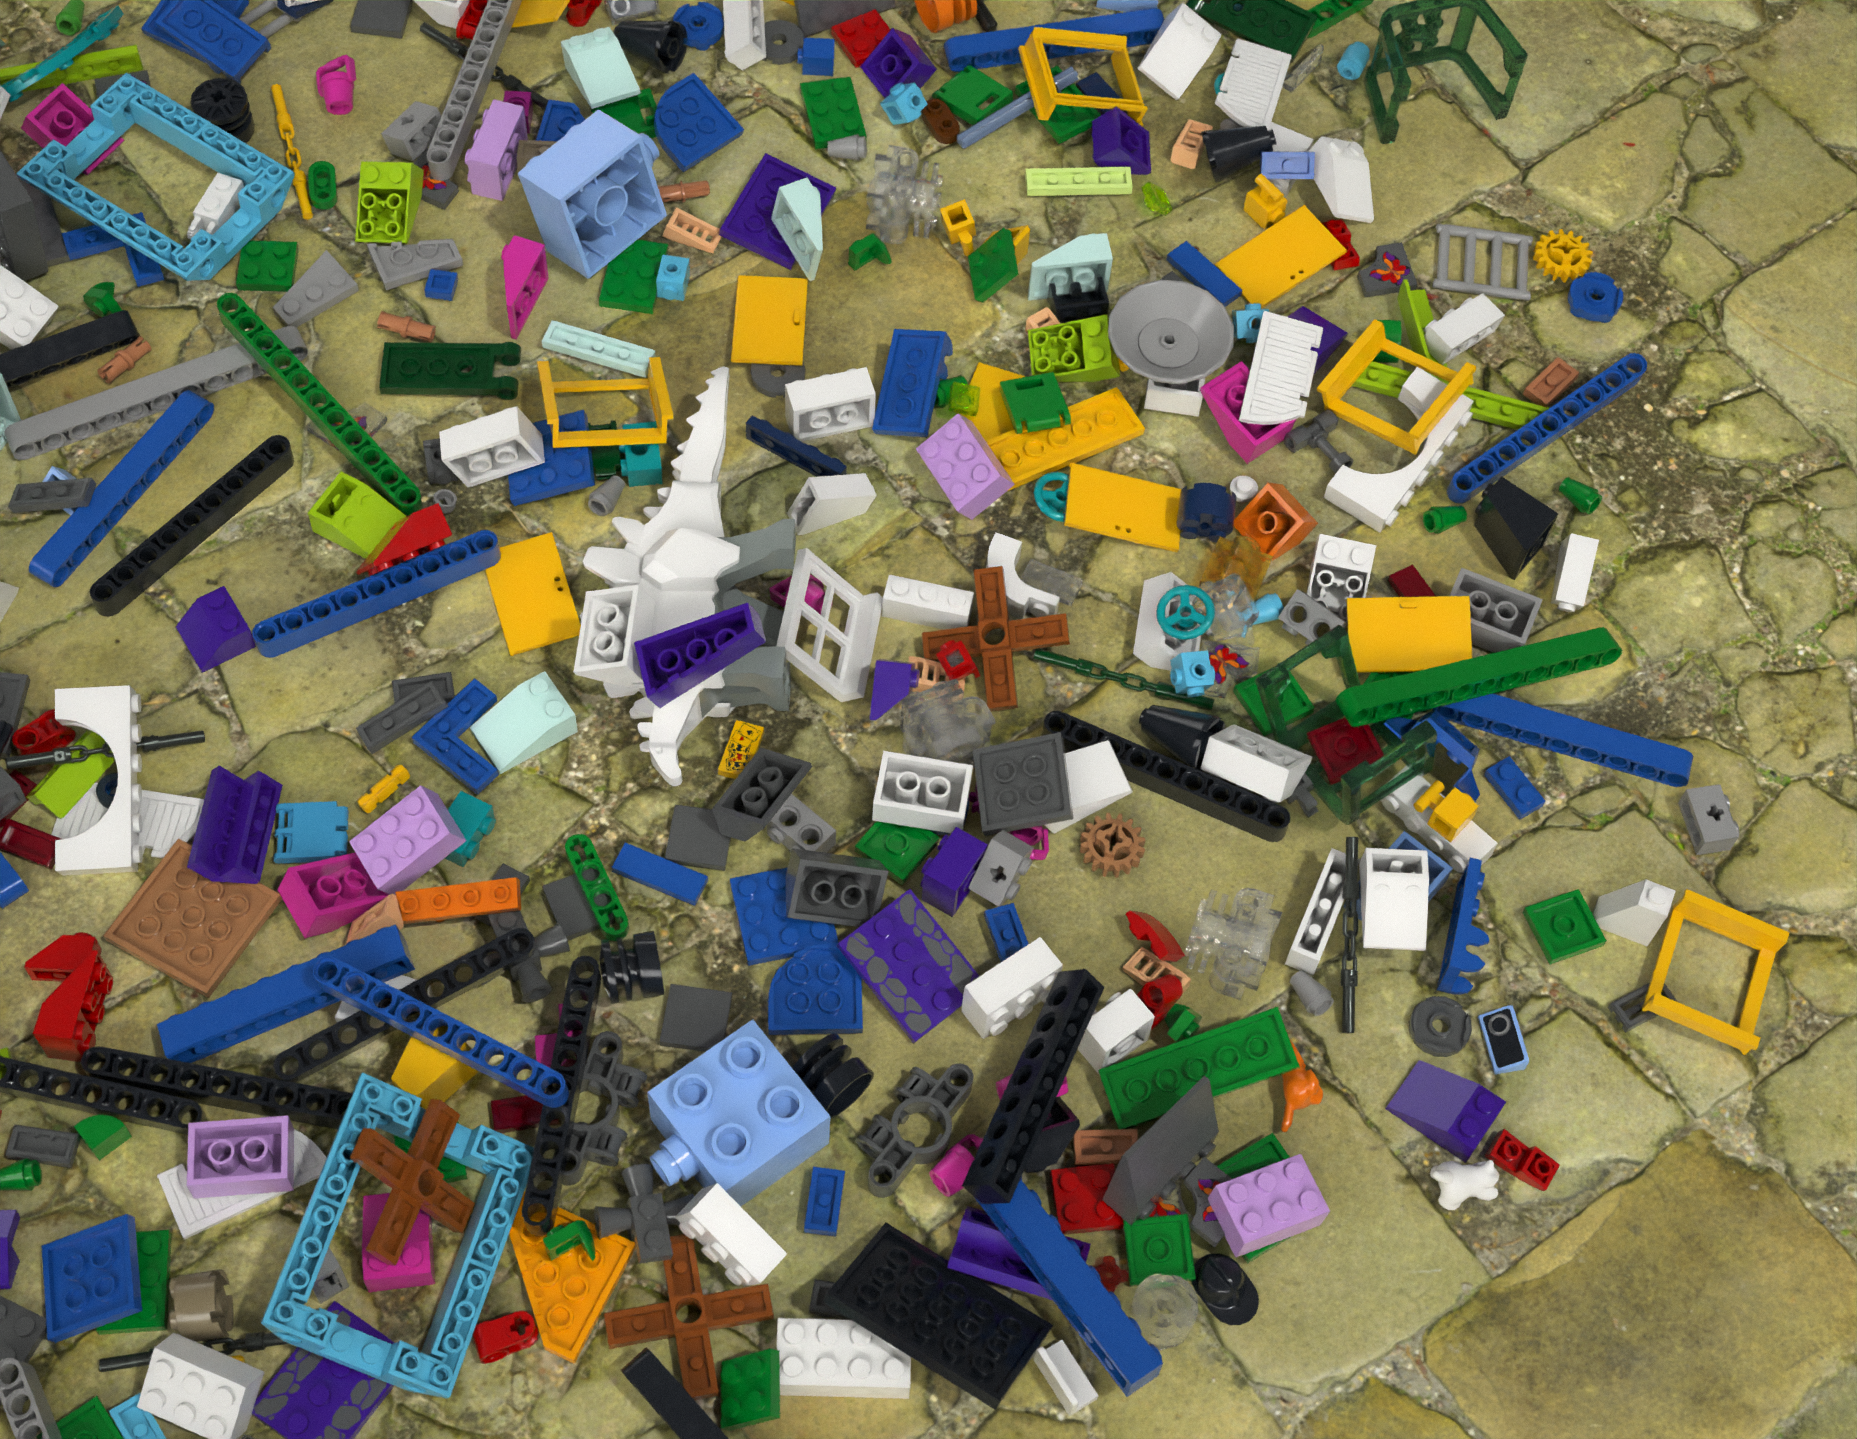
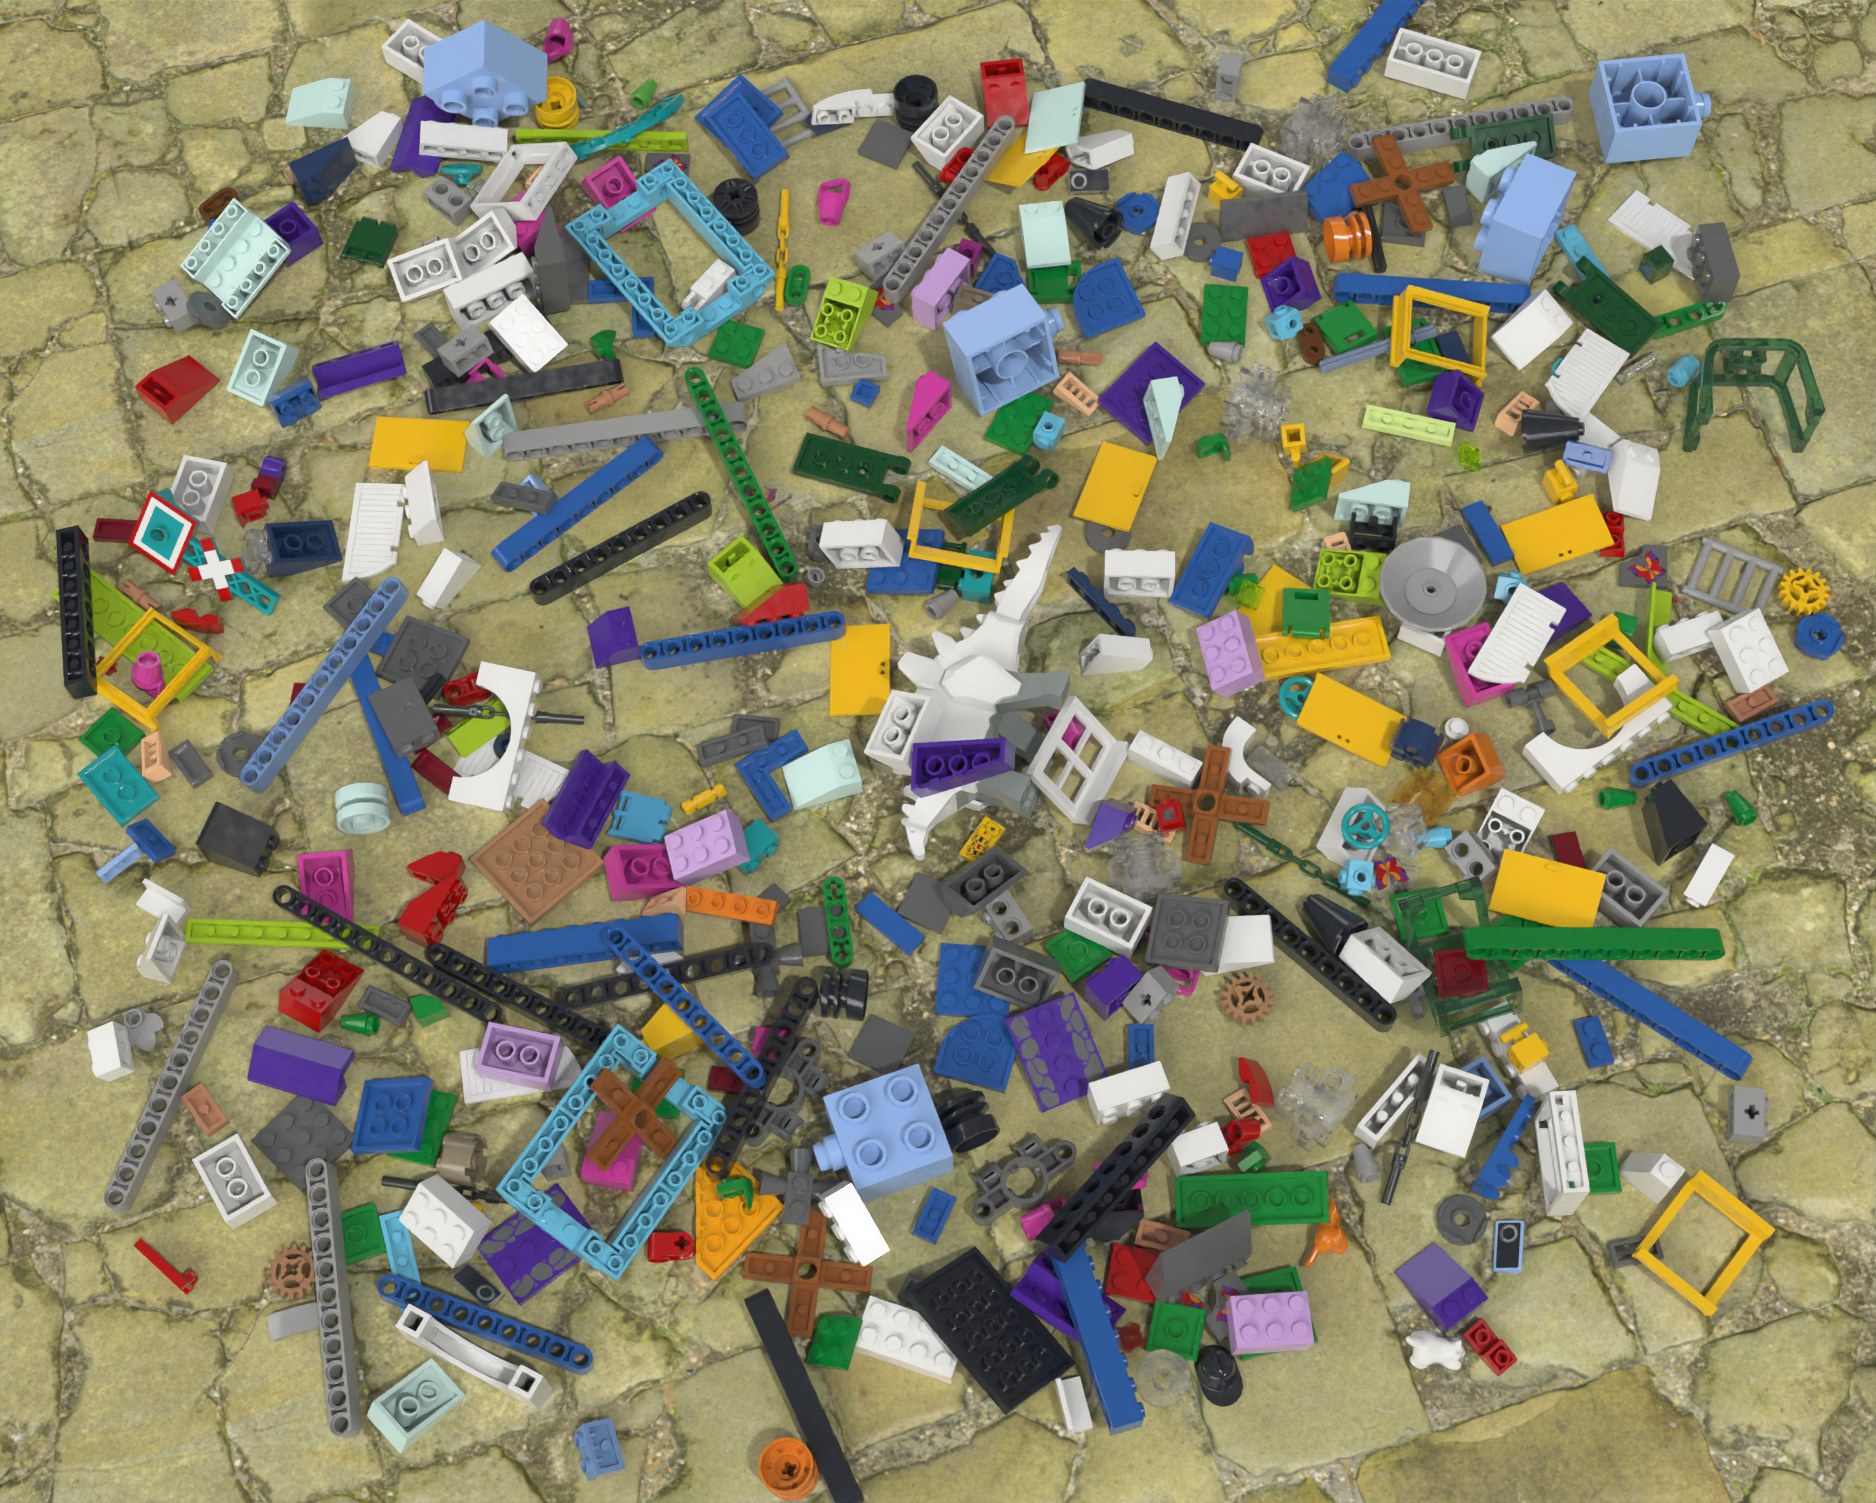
camera: 25 degrees right, 5 degrees up
(639, 357) = (1000, 495): none -> dark green hinge
(1459, 746) = (1551, 990): blue piece -> none
(1524, 859) = (1561, 1153): none -> white window
(1530, 326) = (1748, 651): none -> white brick

